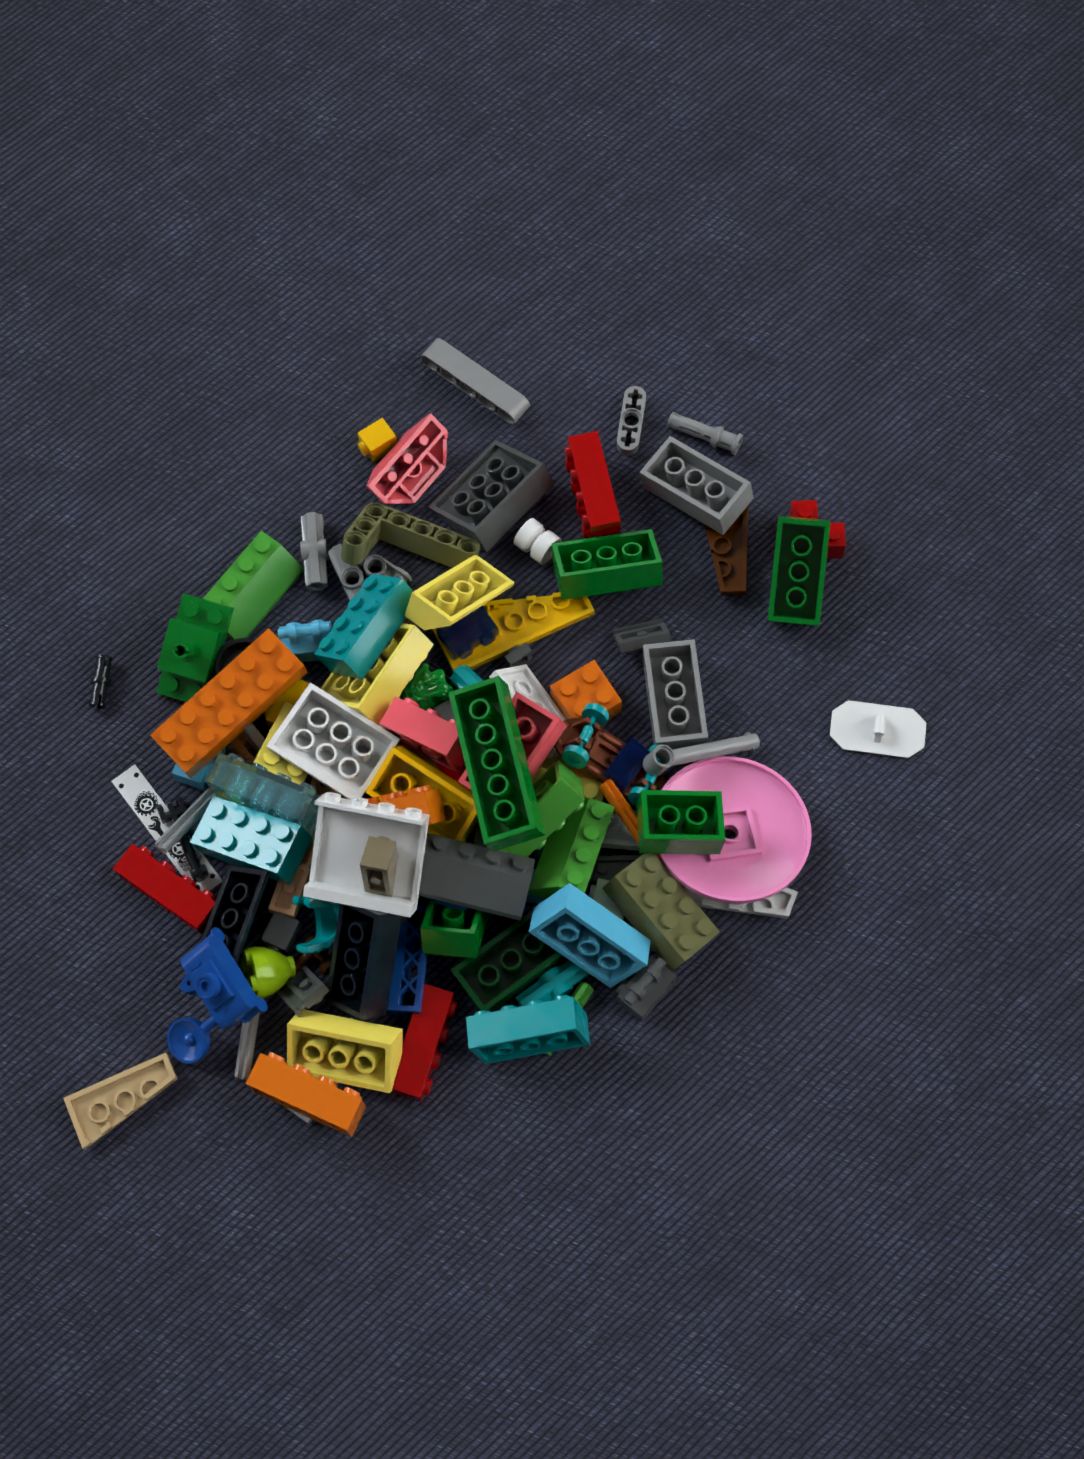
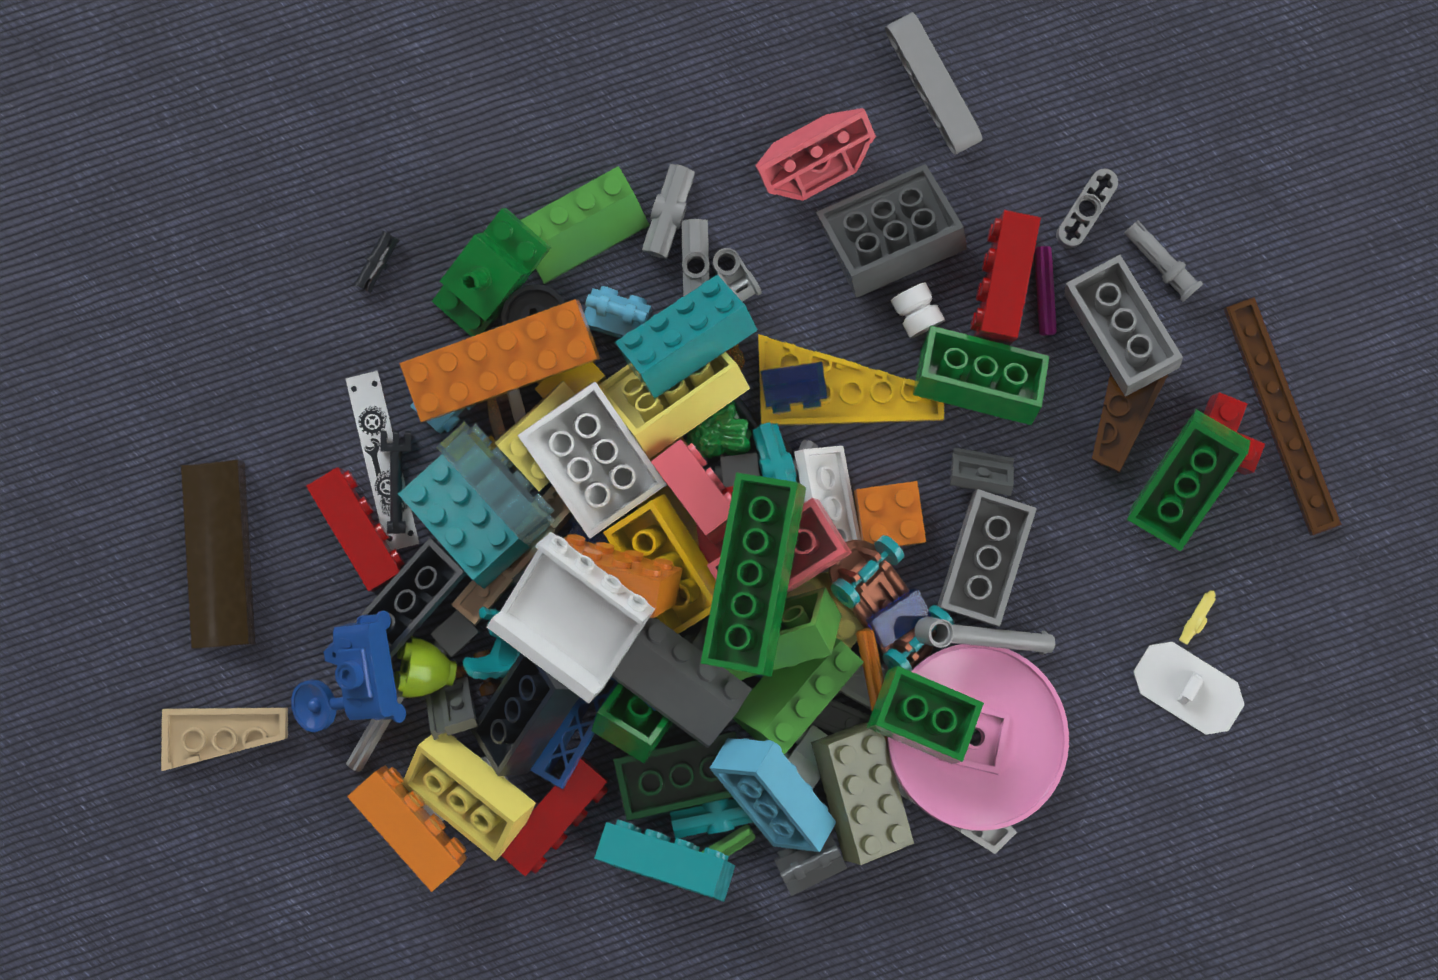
camera: 20 degrees right, 15 degrees up
(61, 958) = (218, 554): none -> dark brown arch
(184, 822) = (402, 466): light grey axle -> none
(376, 440) = (792, 108): yellow brick -> none
(379, 865) = (580, 635): dark tan slope -> none
(407, 532) = (781, 238): olive beam -> none
(456, 593) = (800, 344): light yellow slope -> none
(518, 655) = (837, 434): dark grey plate -> none
(628, 490) = (1045, 291): none -> magenta axle
(849, 505) = (1282, 416): none -> reddish brown tile
(859, 674) = (1198, 618): none -> light yellow piece

